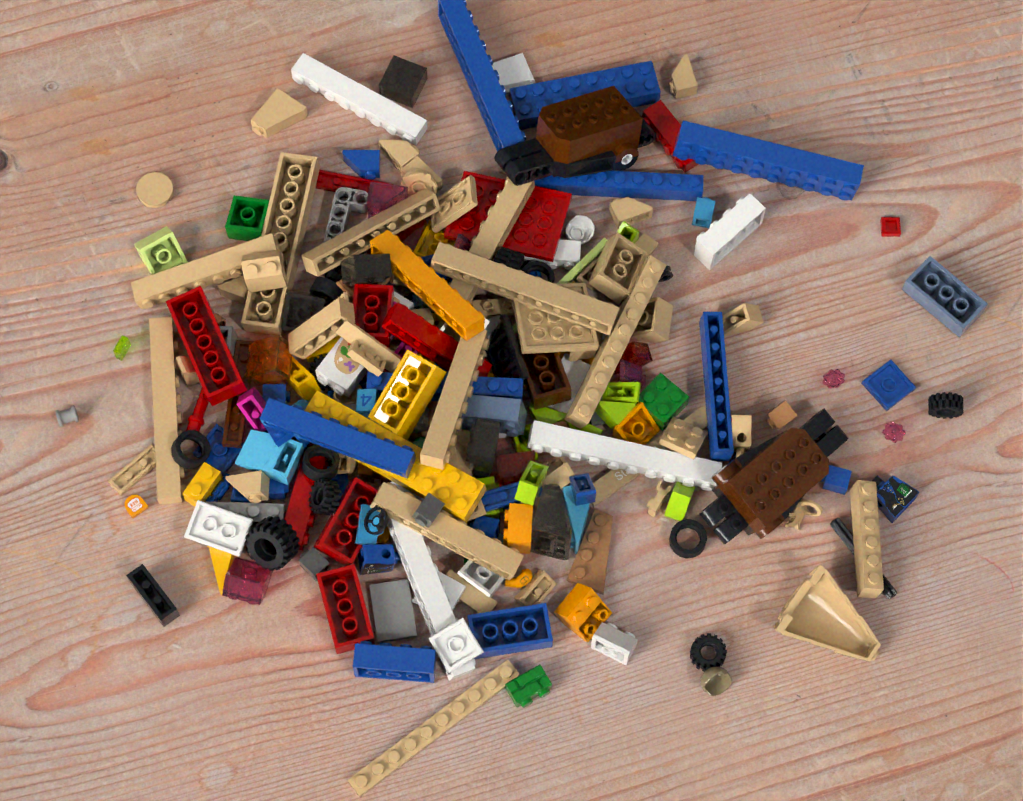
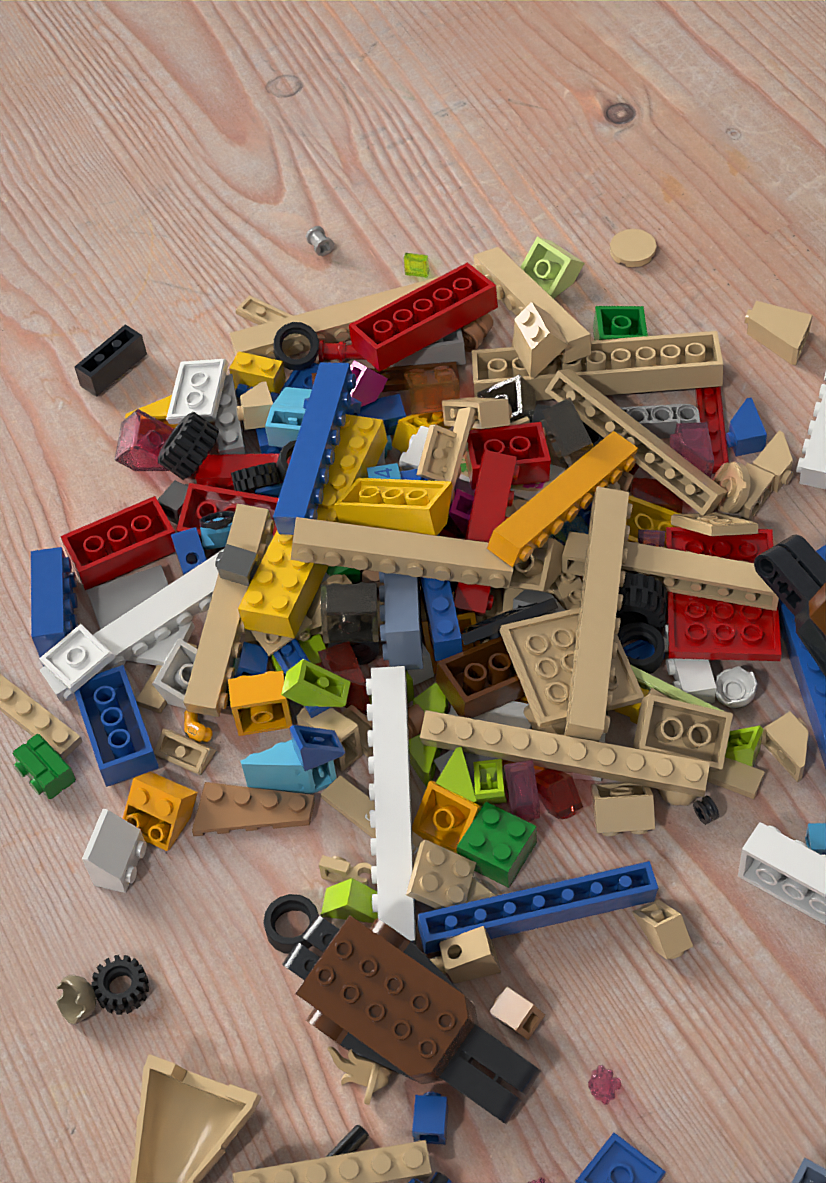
camera: 85 degrees right, 15 degrees down
(135, 505) = (224, 325): tile -> none
(552, 525) = (256, 715): clear smoke windscreen -> none

